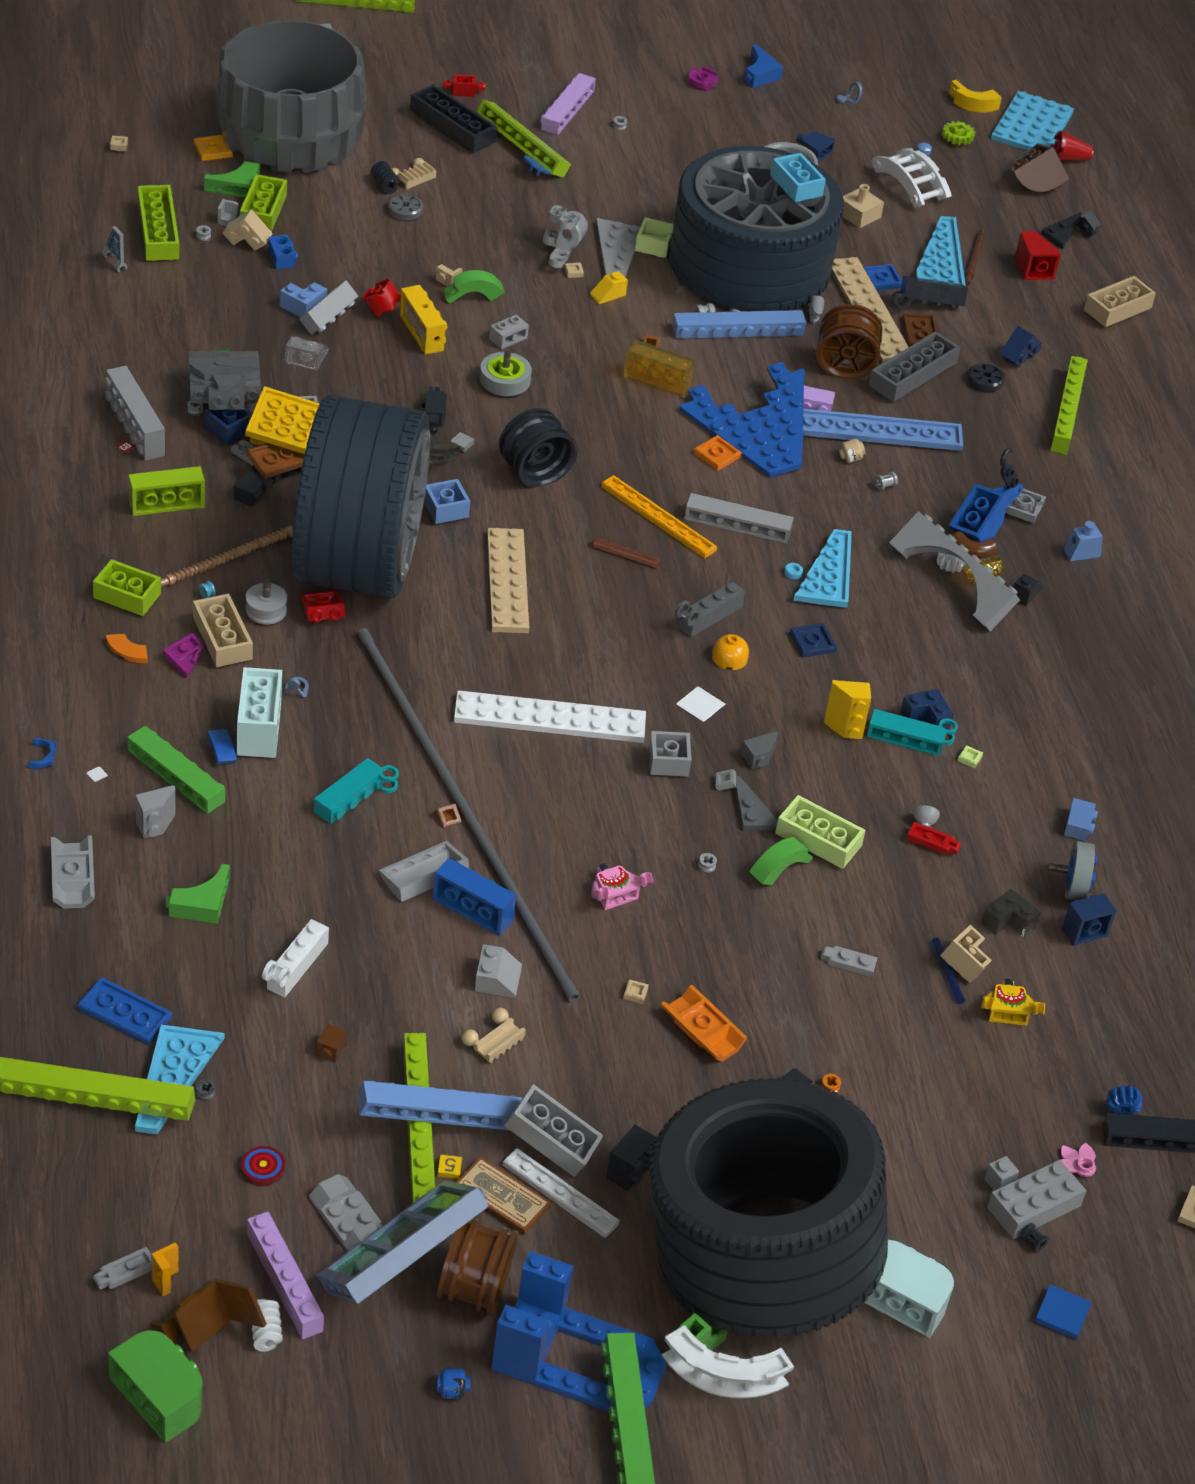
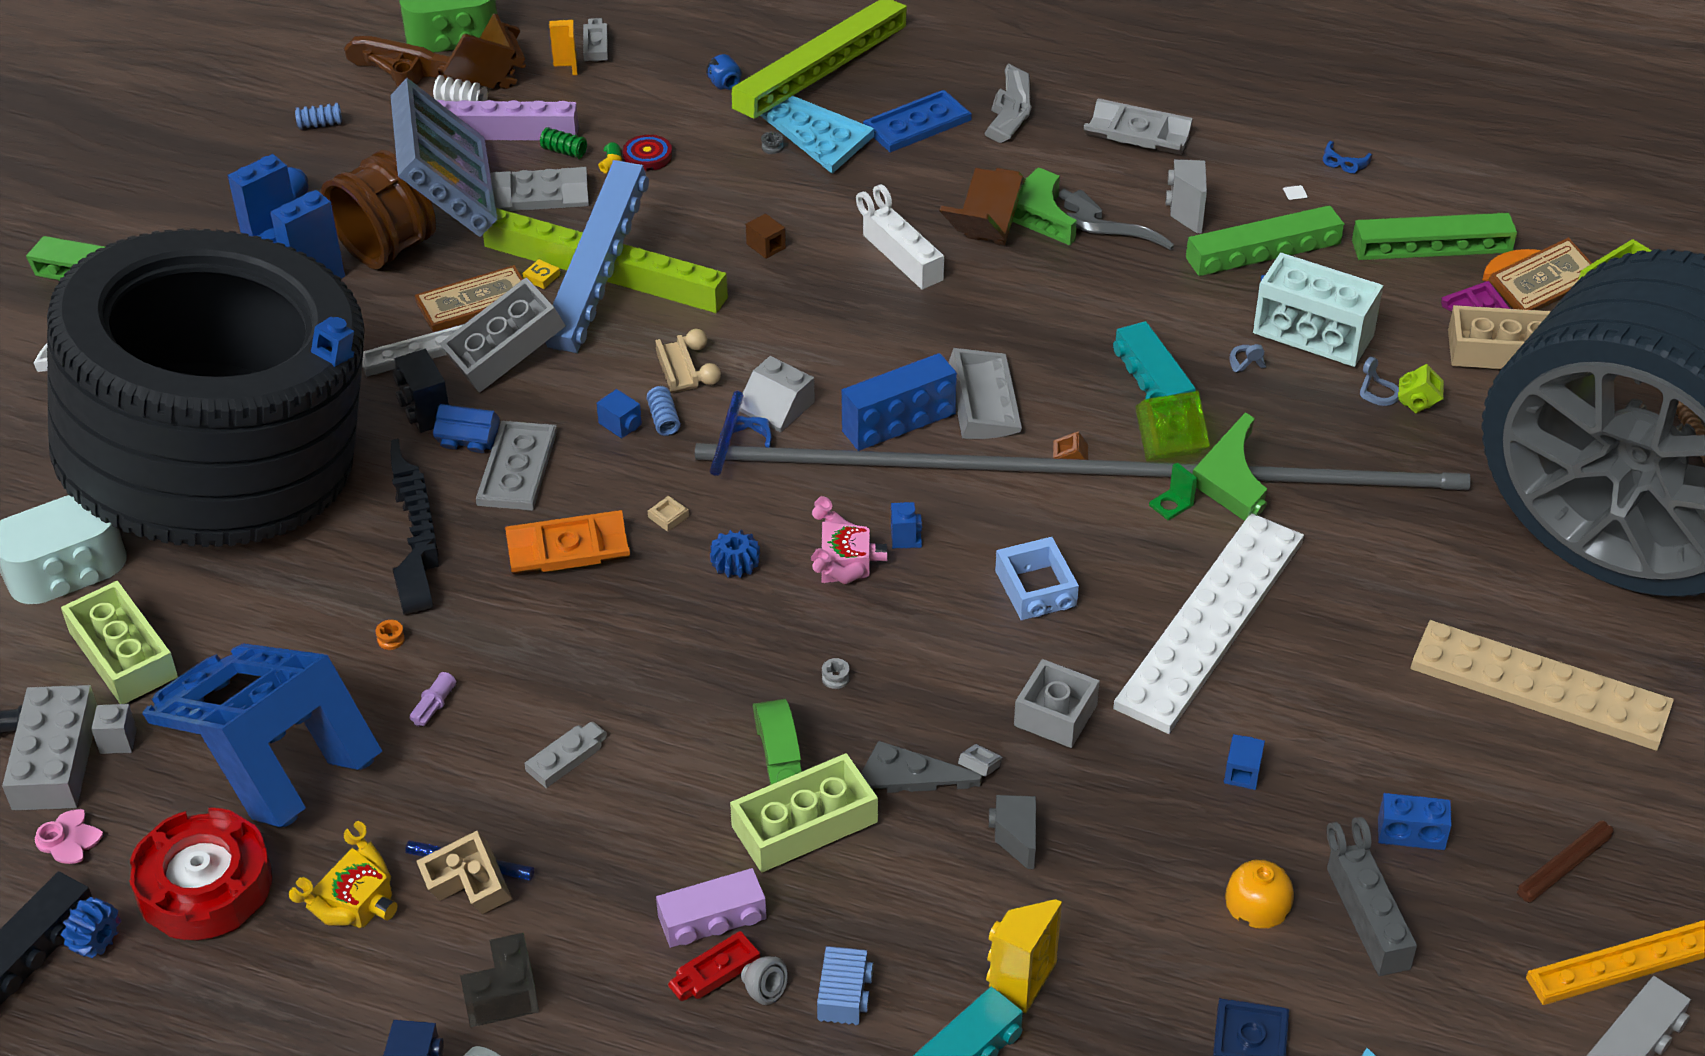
camera: 125 degrees right, 0 degrees up
(81, 953) = (1010, 105): none -> light grey plate
(121, 686) = (1433, 236): none -> bright green brick
(130, 1154) = (723, 72): none -> blue head
(137, 628) = (1541, 276): none -> tile
(205, 867) = (1087, 219): none -> dark grey piece
(242, 1385) = (396, 58): none -> reddish brown piece
(244, 910) = (988, 205): none -> reddish brown piece
(284, 1183) = (613, 153): none -> arm
(287, 1221) = (563, 142): none -> green piece
(291, 658) = (1420, 388): none -> lime brick
(313, 740) = (1253, 353): none -> sand blue piece
(347, 1419) = (318, 116): none -> medium blue piece
(413, 758) = (1172, 426): none -> clear neon green brick
(432, 727) = (1226, 475): none -> bright green arch
(456, 753) = (1181, 492): none -> green bracket
(534, 986) = (763, 429): none -> blue cap
(550, 1027) = (663, 410): none -> medium blue piece
(555, 978) = (726, 434): none -> clear blue bar
(568, 807) = (1031, 557): none -> light blue window
(570, 1048) = (619, 413): none -> blue brick
(574, 859) = (905, 526): none -> blue brick
(642, 1115) = (466, 428): none -> blue brick
(646, 604) = (1414, 821): none -> blue brick
(647, 1090) = (516, 465): none -> light grey tile
(651, 675) = (1244, 761): none -> blue brick
(652, 938) = (734, 553): none -> blue gear
(700, 704) = (1165, 813): white sticker -> none
(739, 1080) = (336, 335): none -> blue brick
(862, 1037) = (432, 699): none -> lavender axle
(902, 852) = (711, 907): none -> lavender brick
(904, 785) = (842, 985): none -> medium blue brick
(946, 1208) = (119, 642): none -> yellowish green brick
(969, 1049) = (290, 691): none -> blue bracket
(1056, 1072) = (200, 874): none -> red piece

